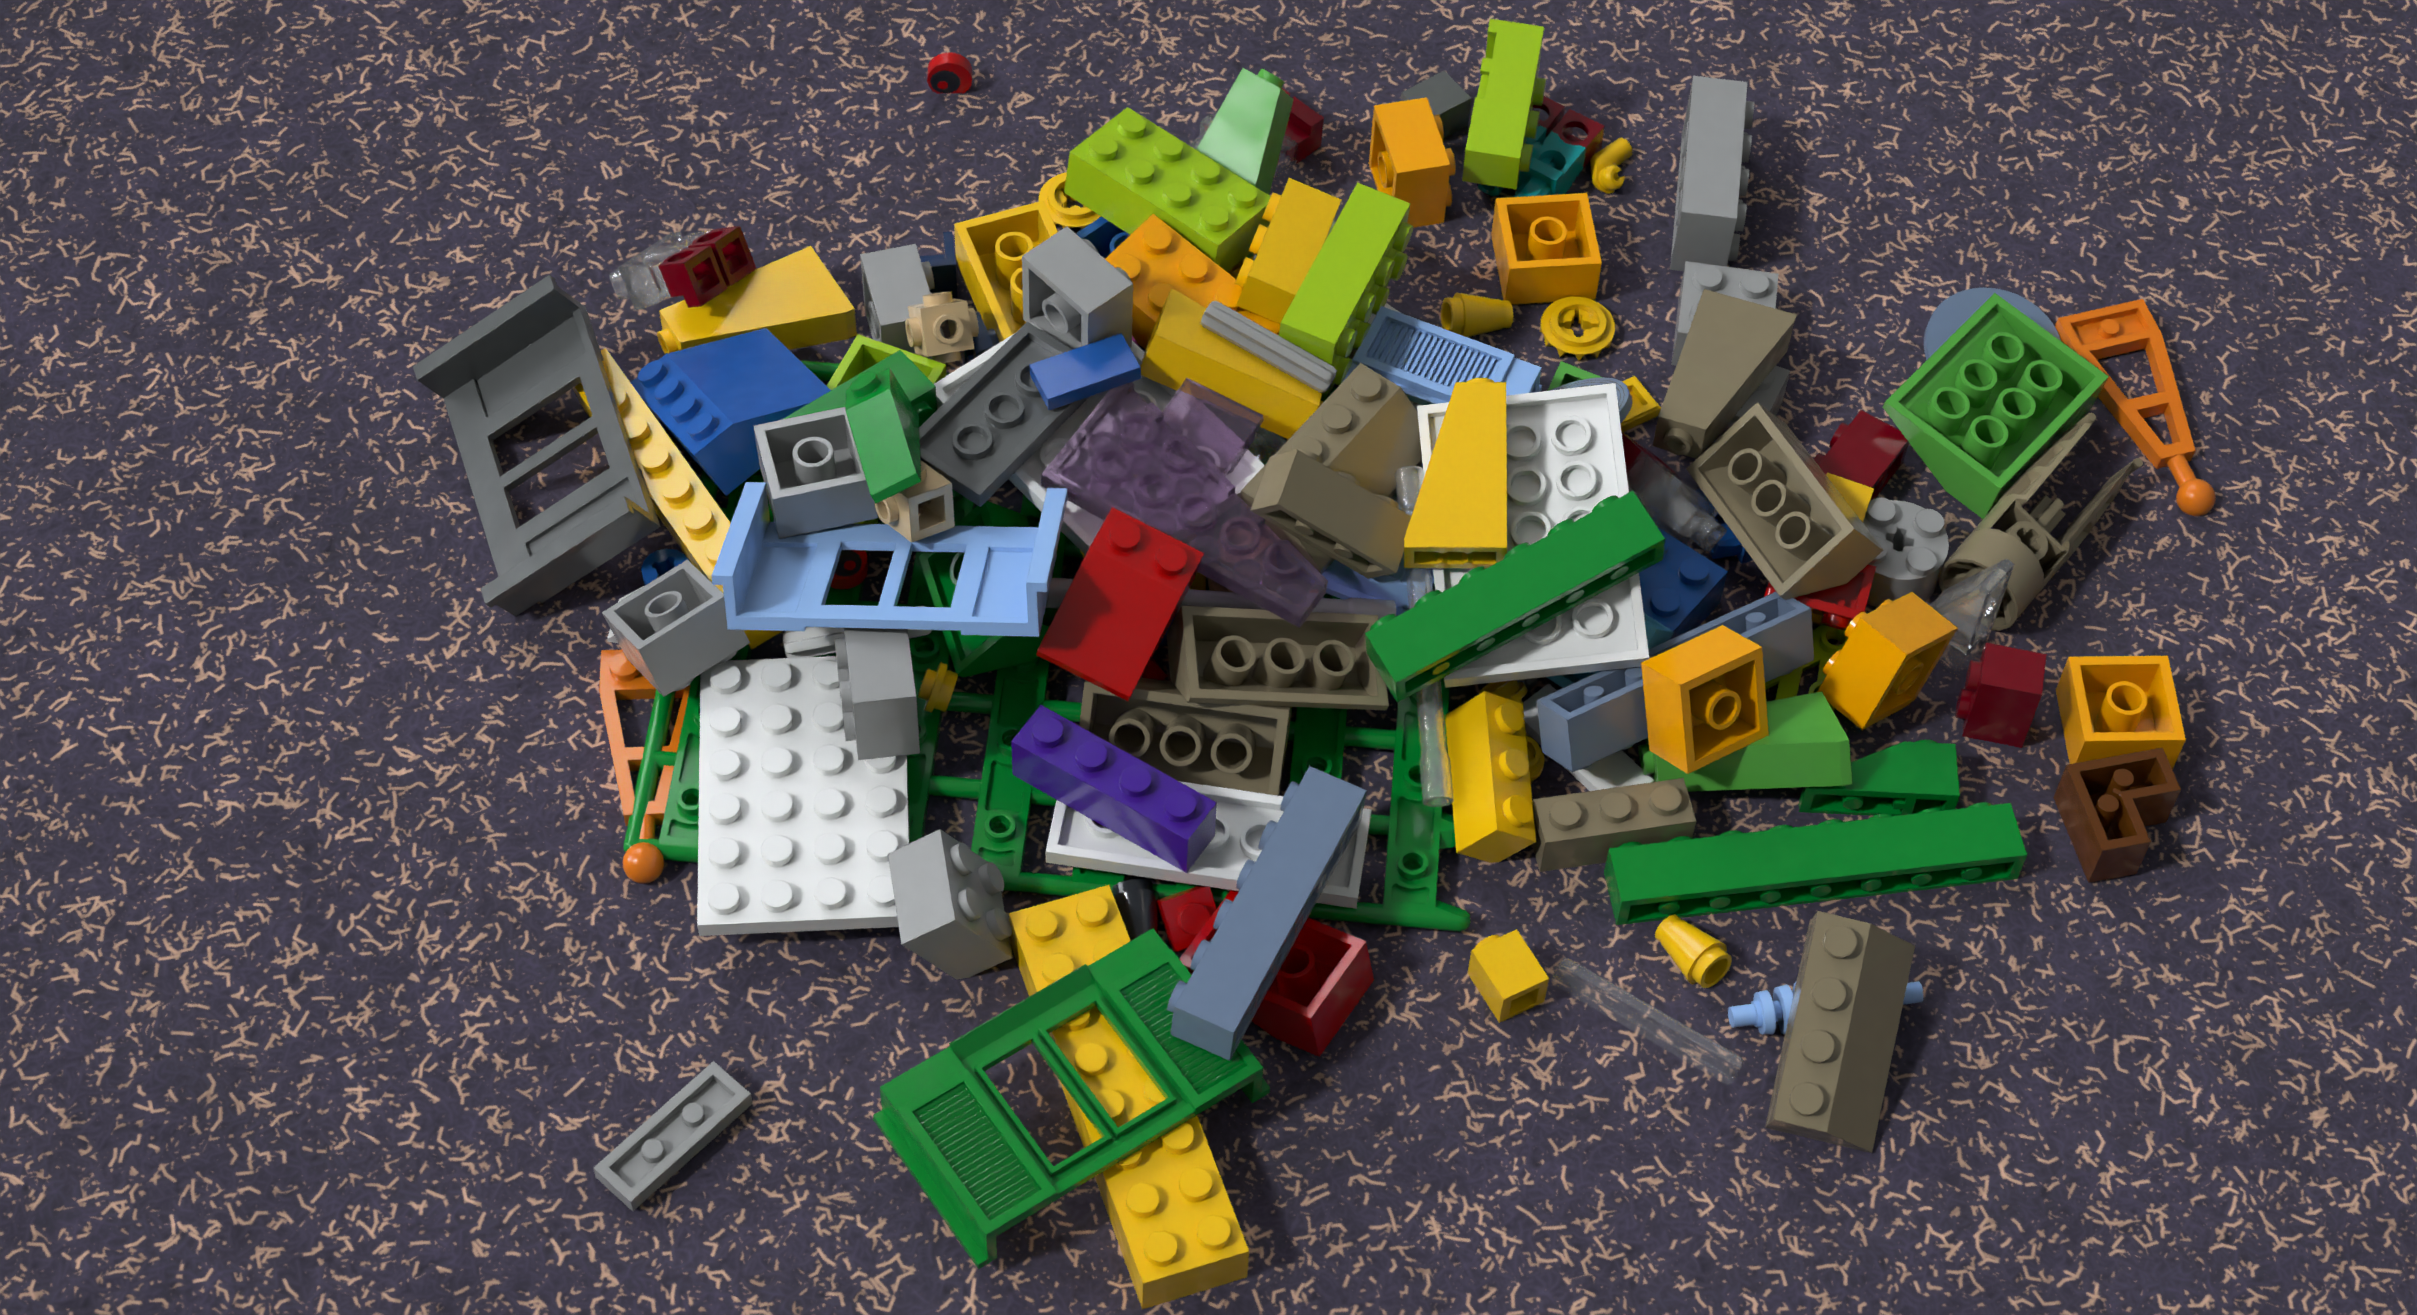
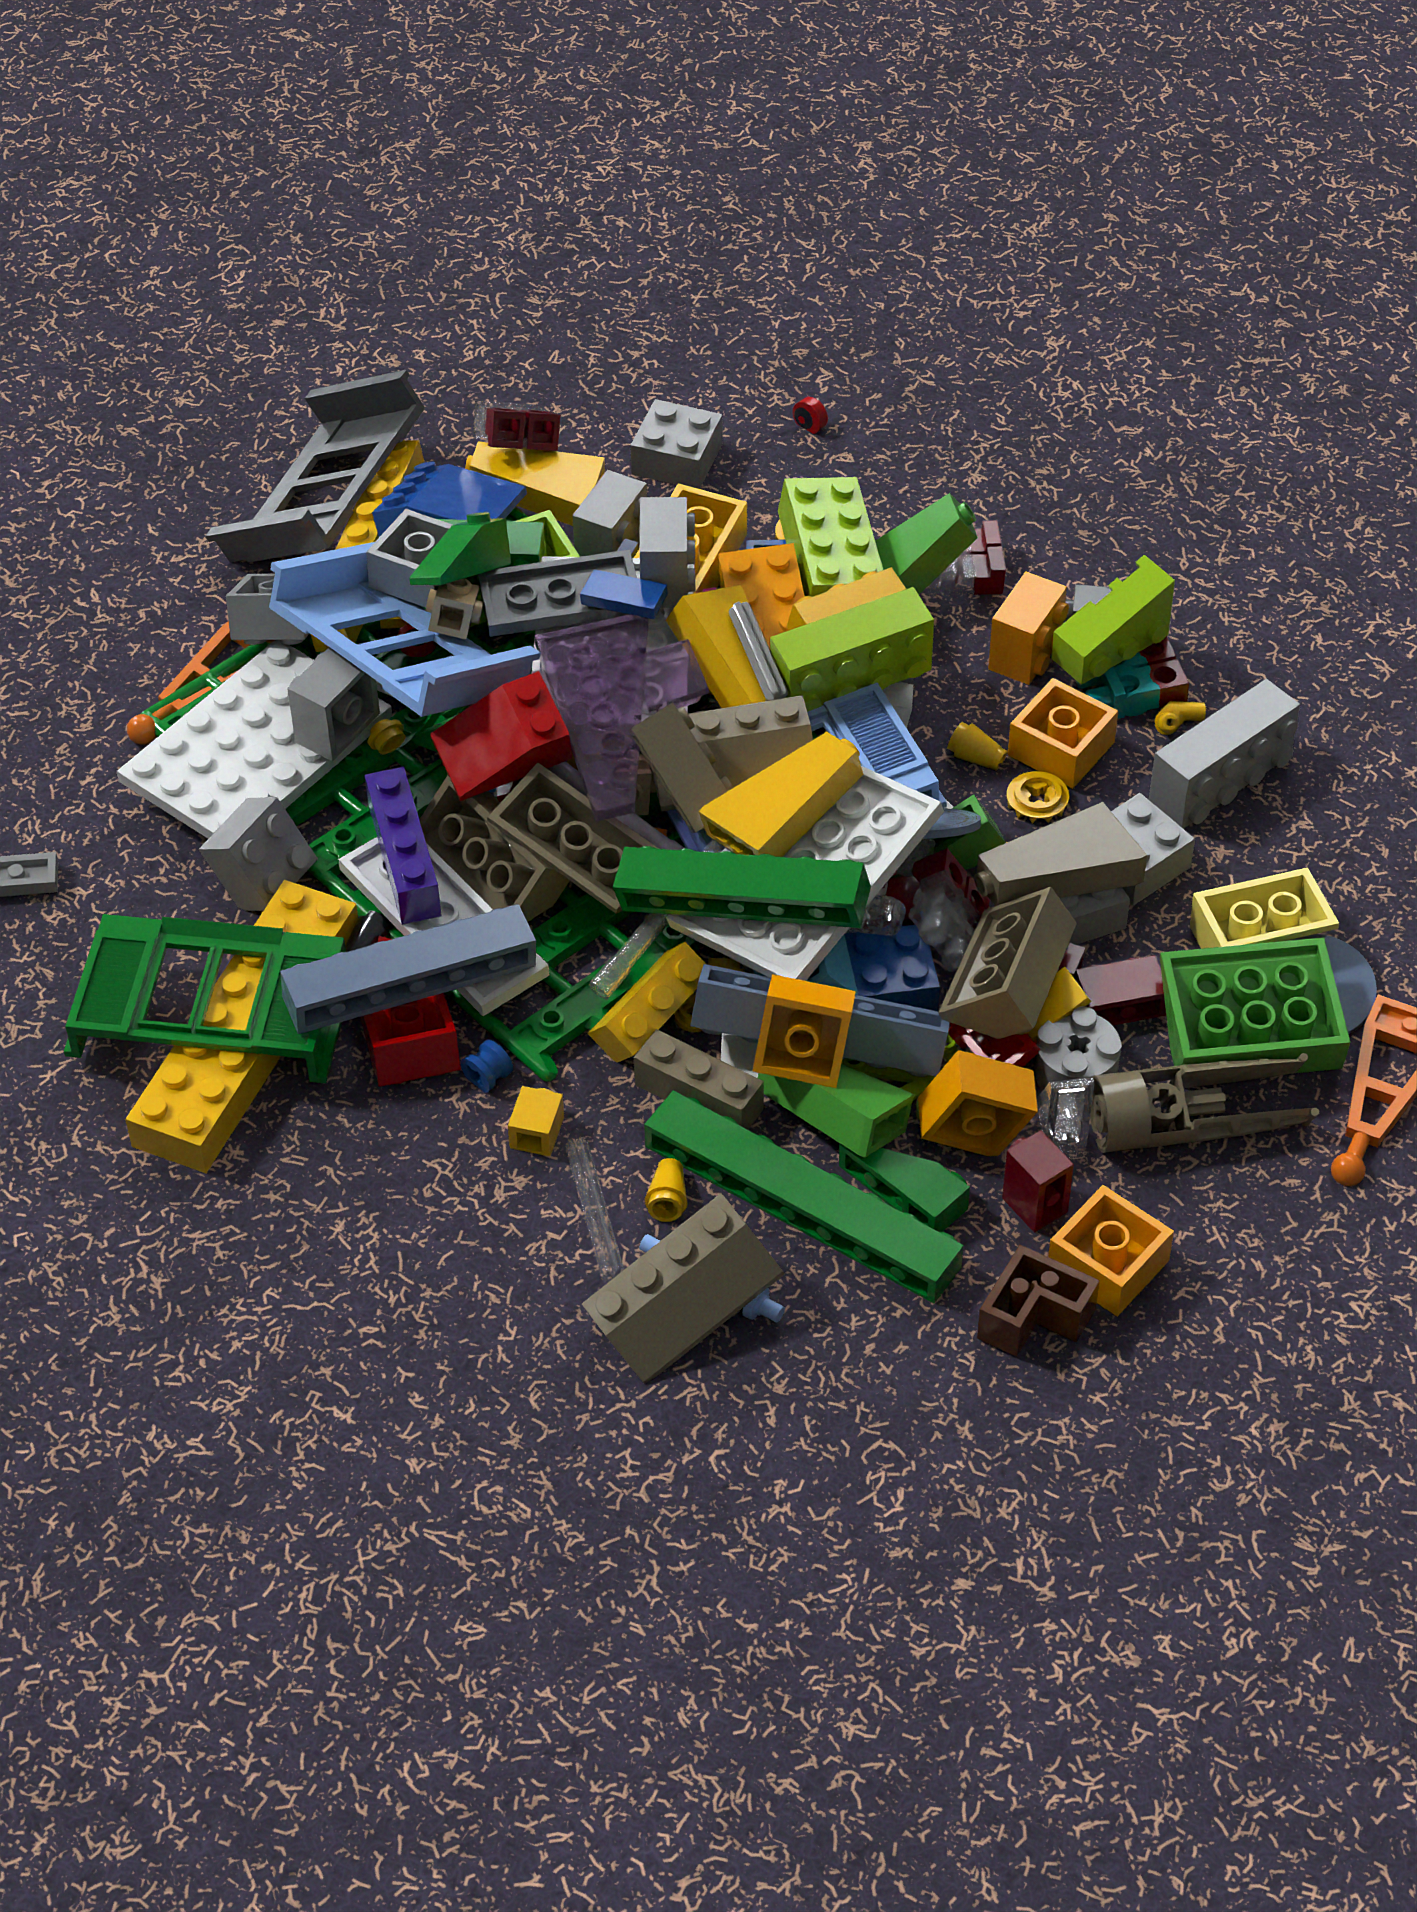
camera: 45 degrees right, 5 degrees down
(857, 186) = (676, 444): none -> light grey brick
(925, 323) = (611, 535): tan brick -> none
(1399, 956) = (487, 1065): none -> blue wheel
(1905, 311) = (1261, 911): none -> light yellow slope

